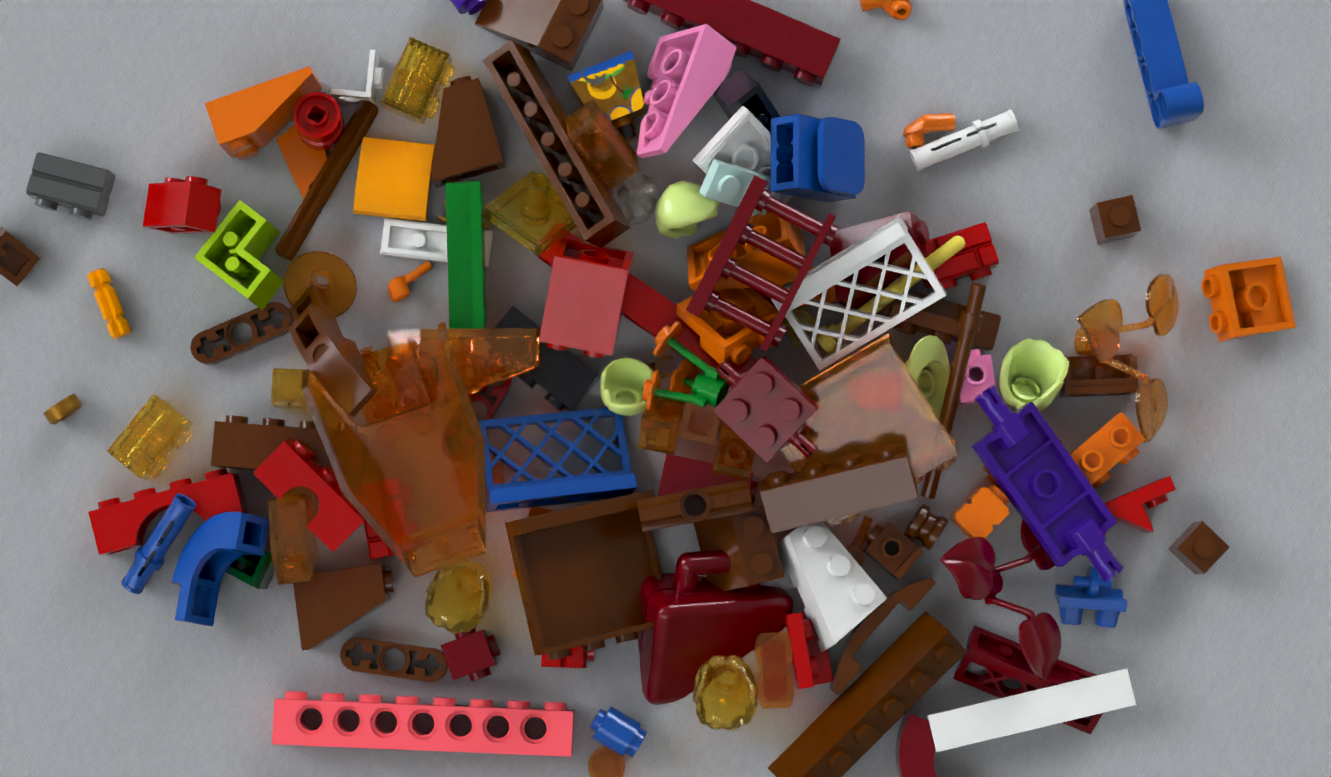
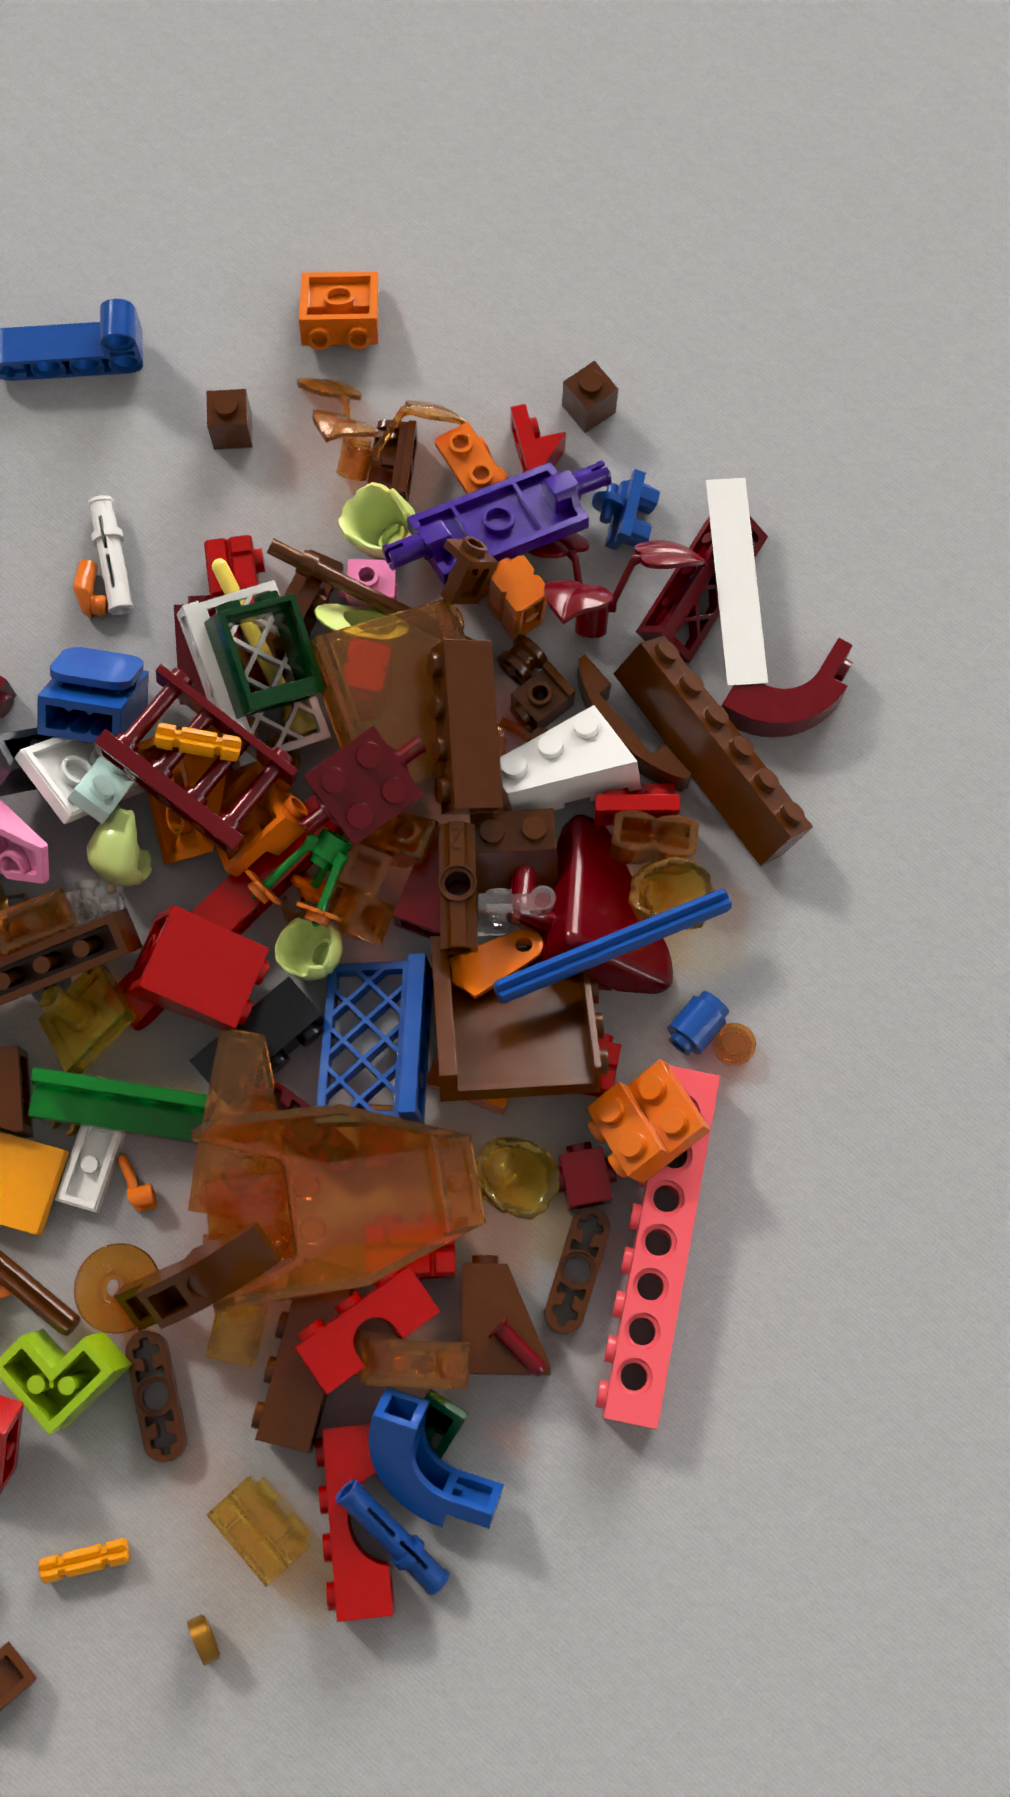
camera: 80 degrees left, 10 degrees down
(317, 620) = (519, 1348): none -> dark red piece
(519, 699) = (646, 1122): none -> orange plate
(640, 548) = (494, 960): none -> orange piece
(665, 648) = (612, 946): none -> blue axle
(683, 546) = (500, 902): none -> clear plate
(773, 261) = (197, 742): none -> light orange axle
(857, 343) = (296, 643): none -> dark green window
(983, 469) = (471, 571): none -> reddish brown bracket

